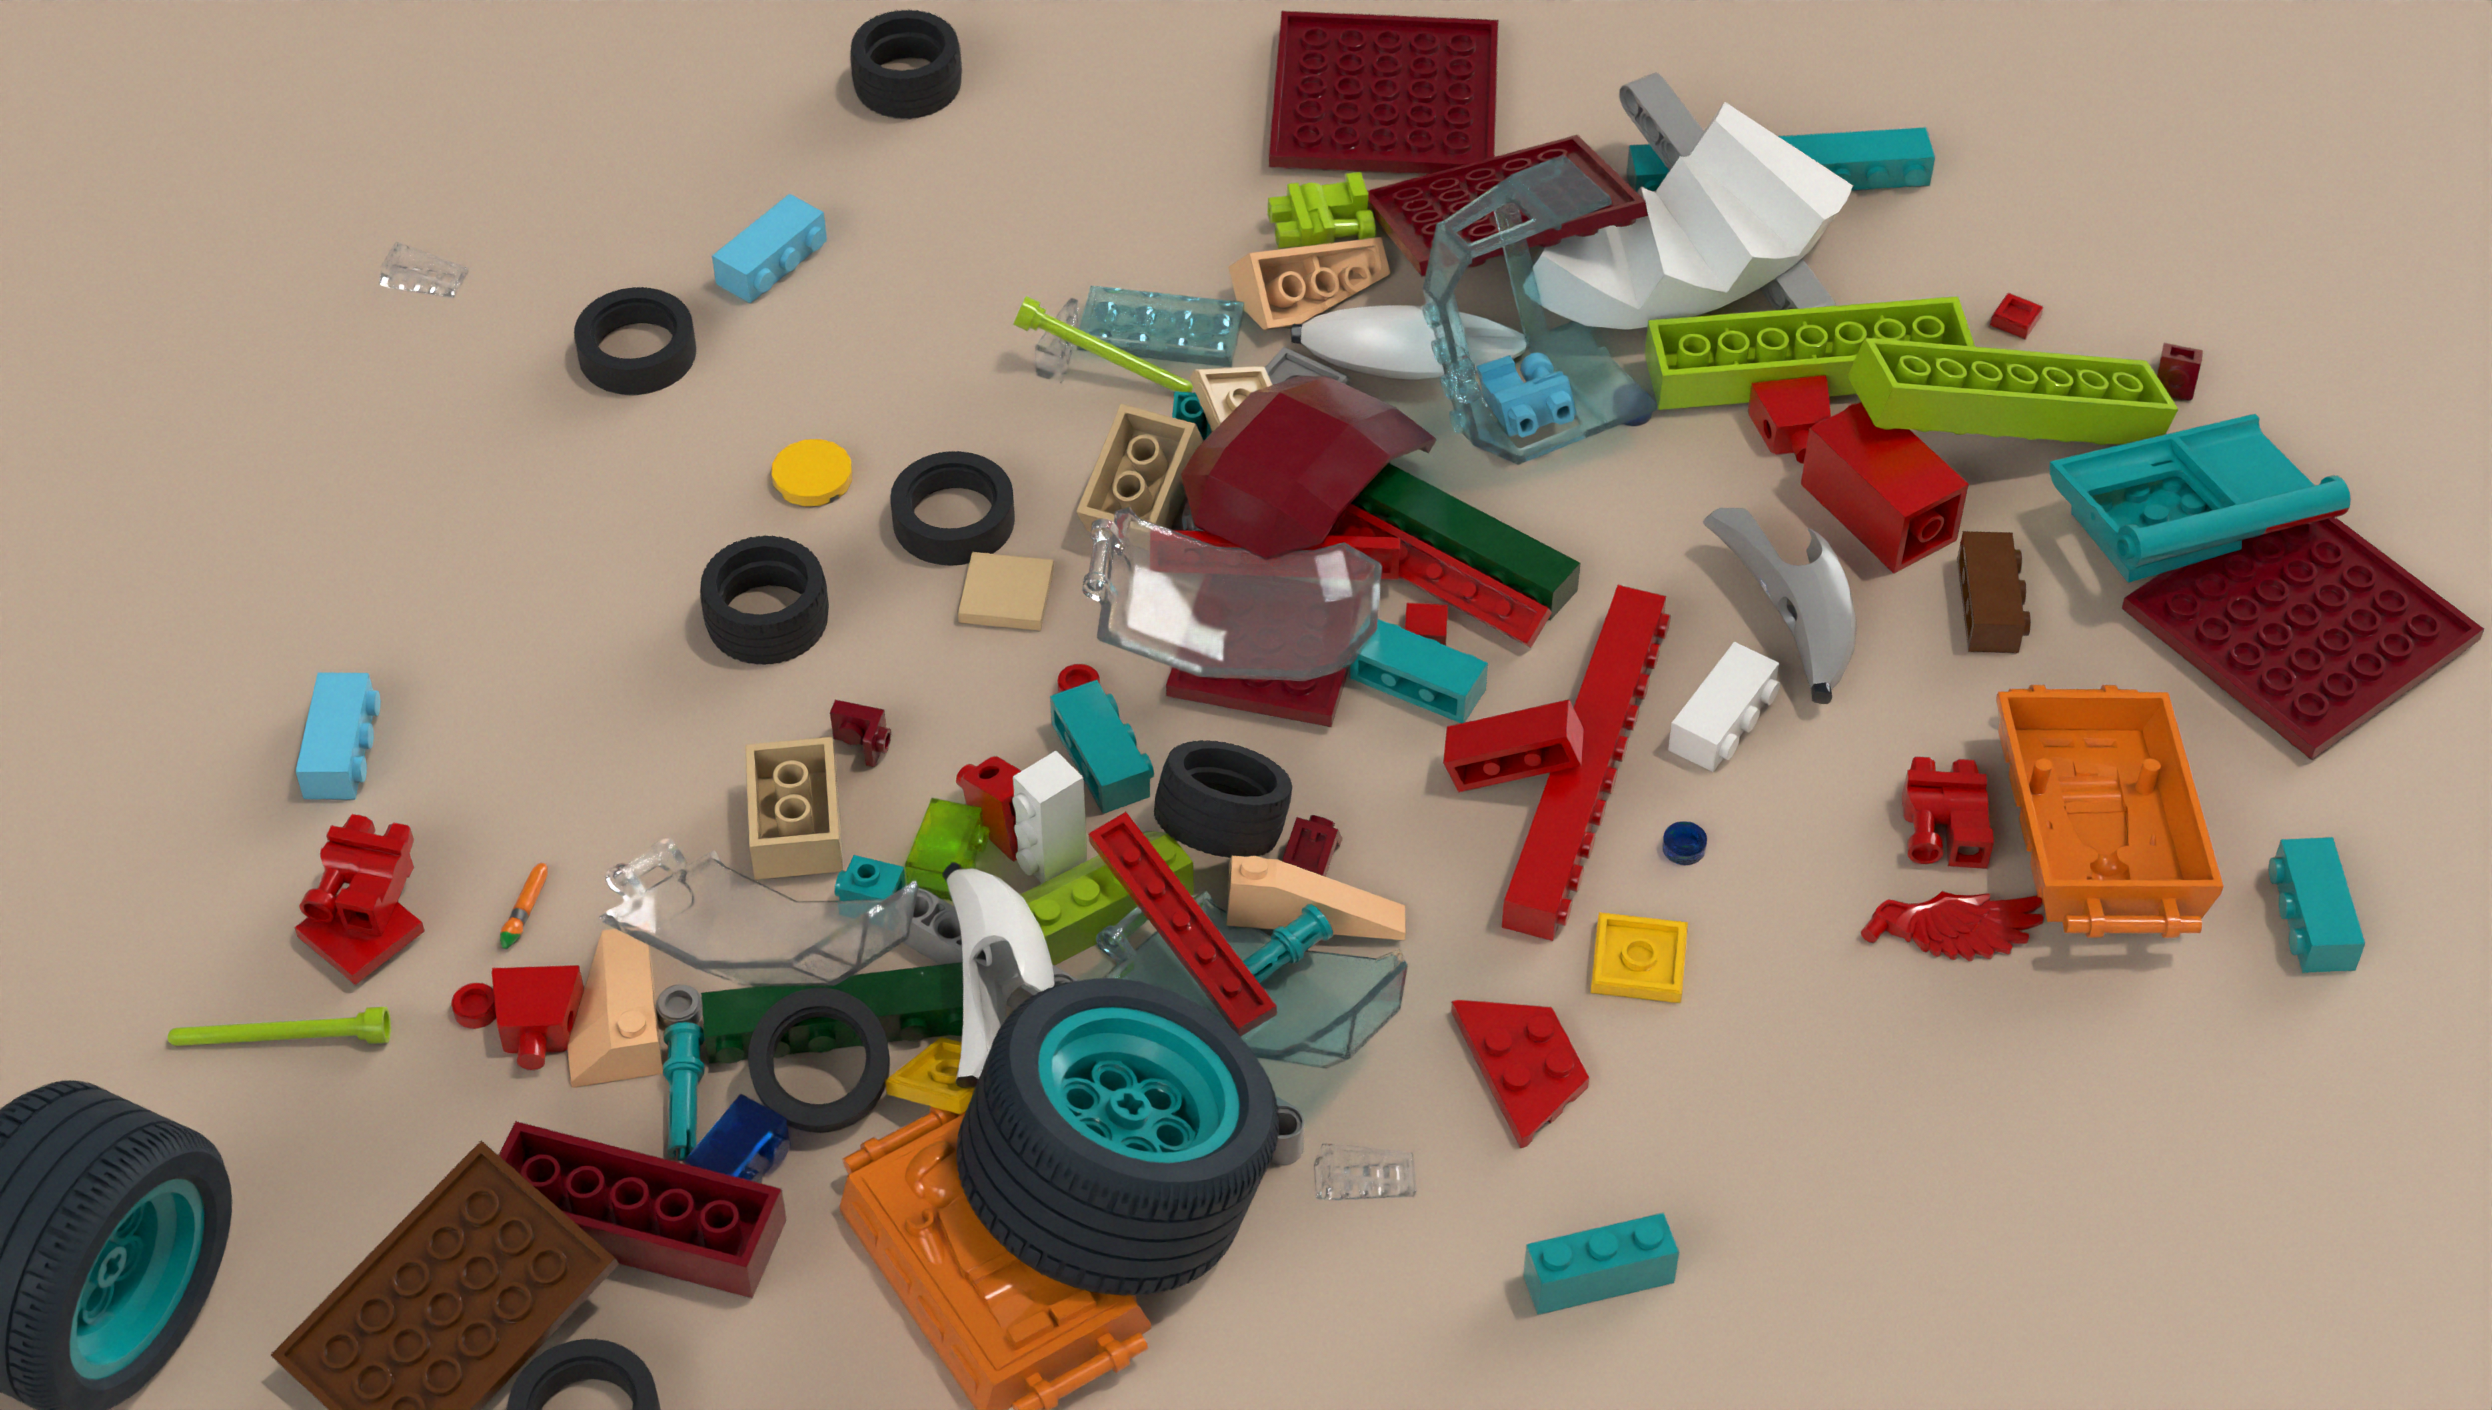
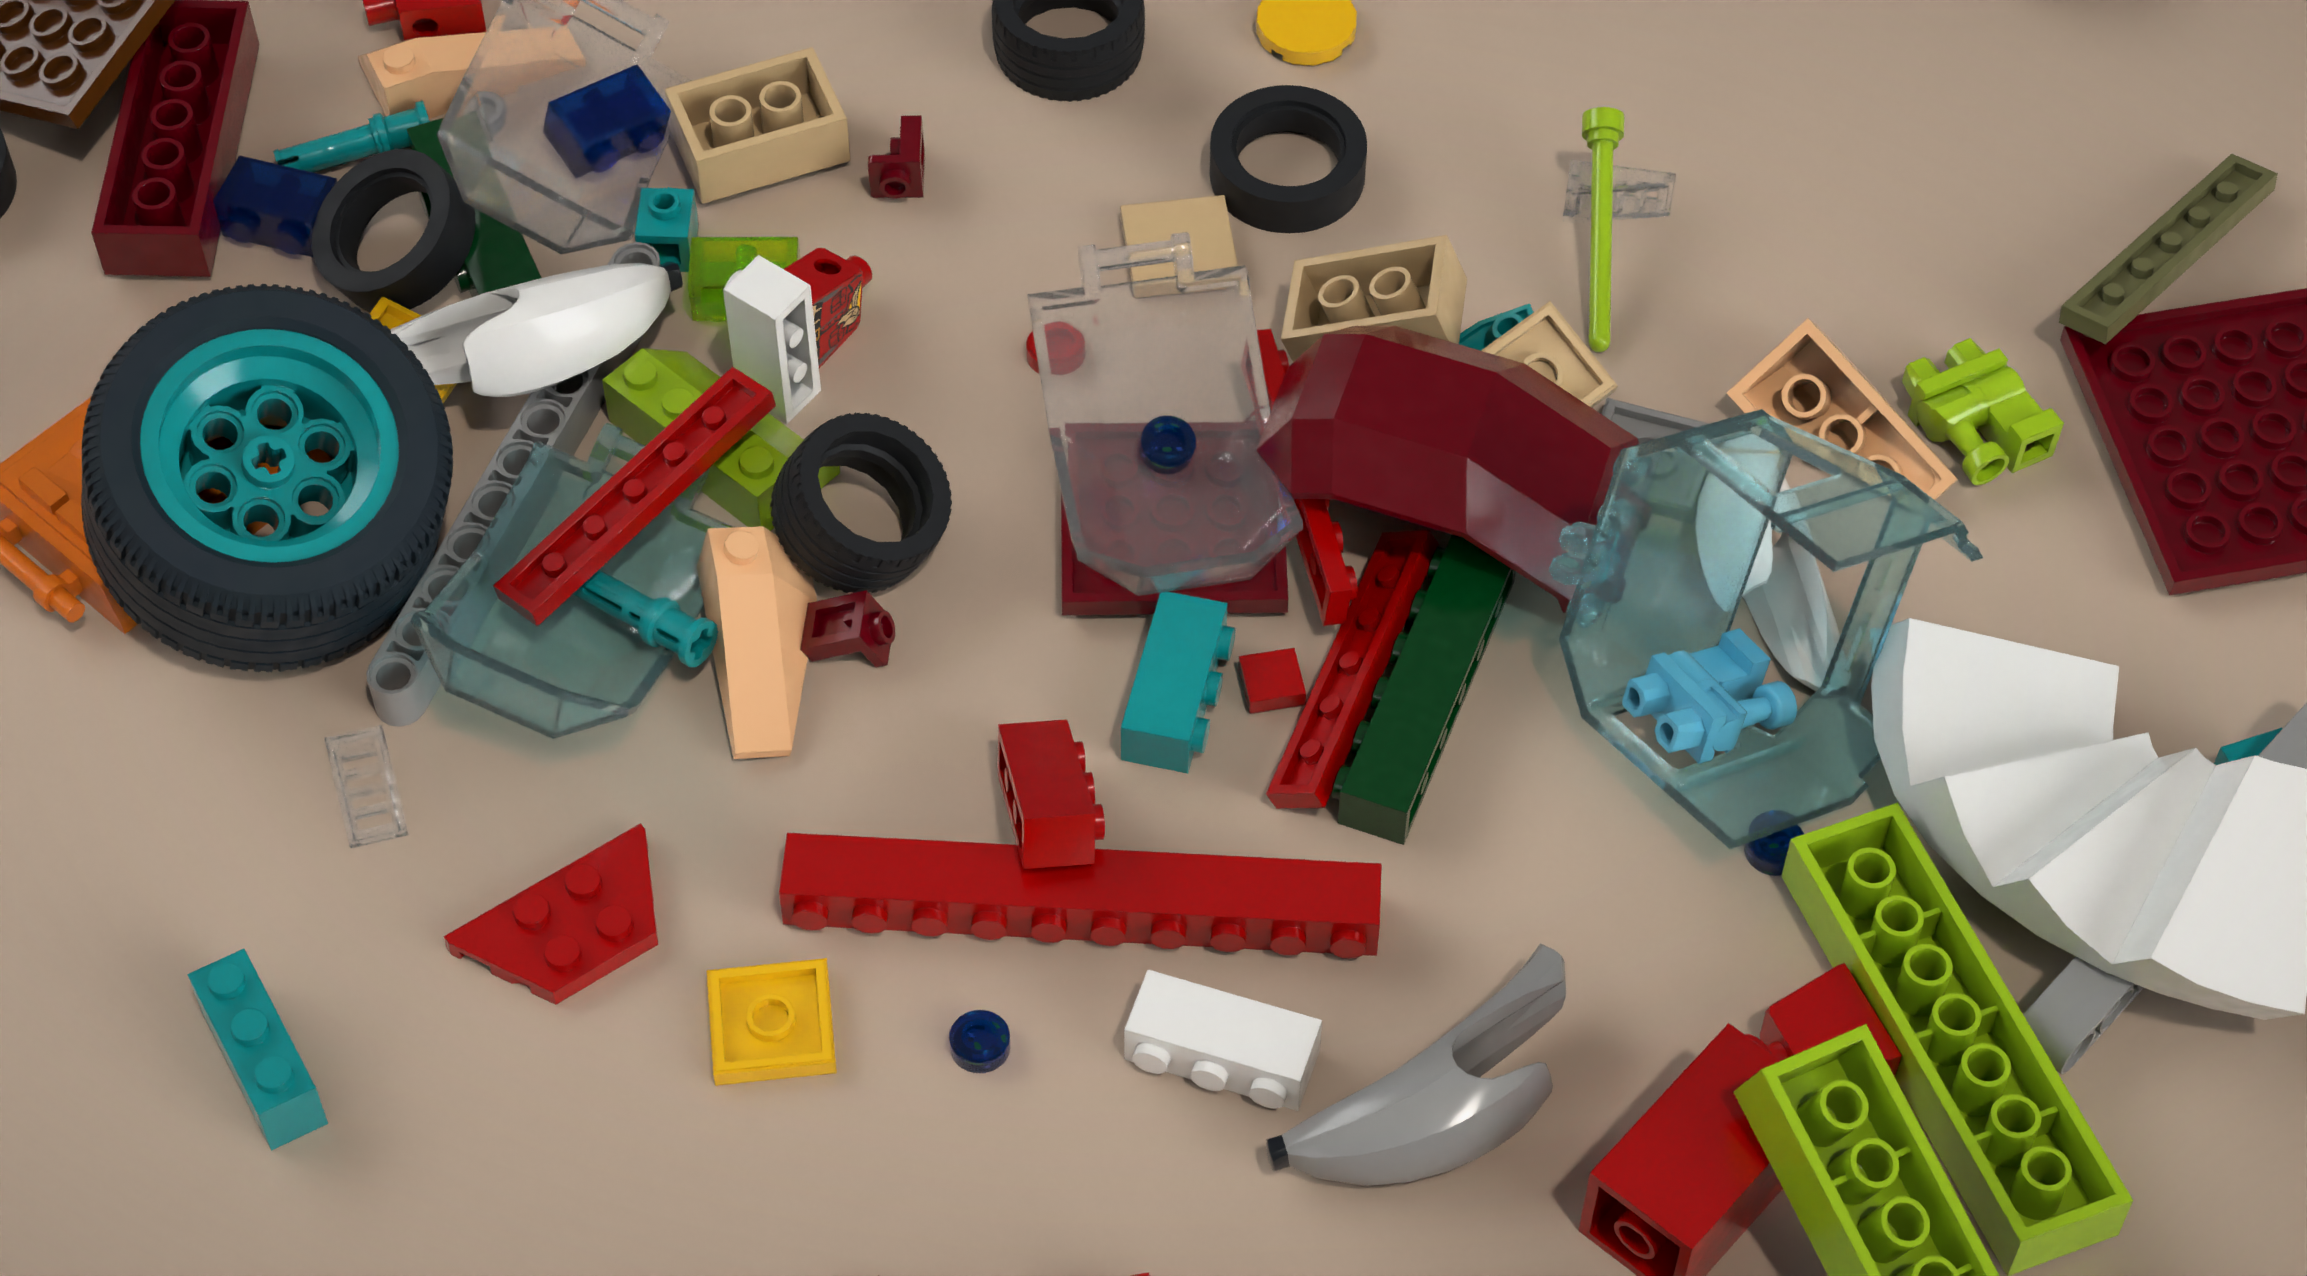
camera: 75 degrees right, 5 degrees up
(754, 900) = (606, 121): none -> clear blue brick
(1101, 746) = (952, 379): teal brick -> none
(1164, 325) = (1691, 288): clear light blue plate -> none
(1224, 617) = (1167, 444): none -> clear blue tile
(1225, 88) = (2167, 248): none -> olive plate
(1416, 205) = (2067, 593): dark red plate -> none

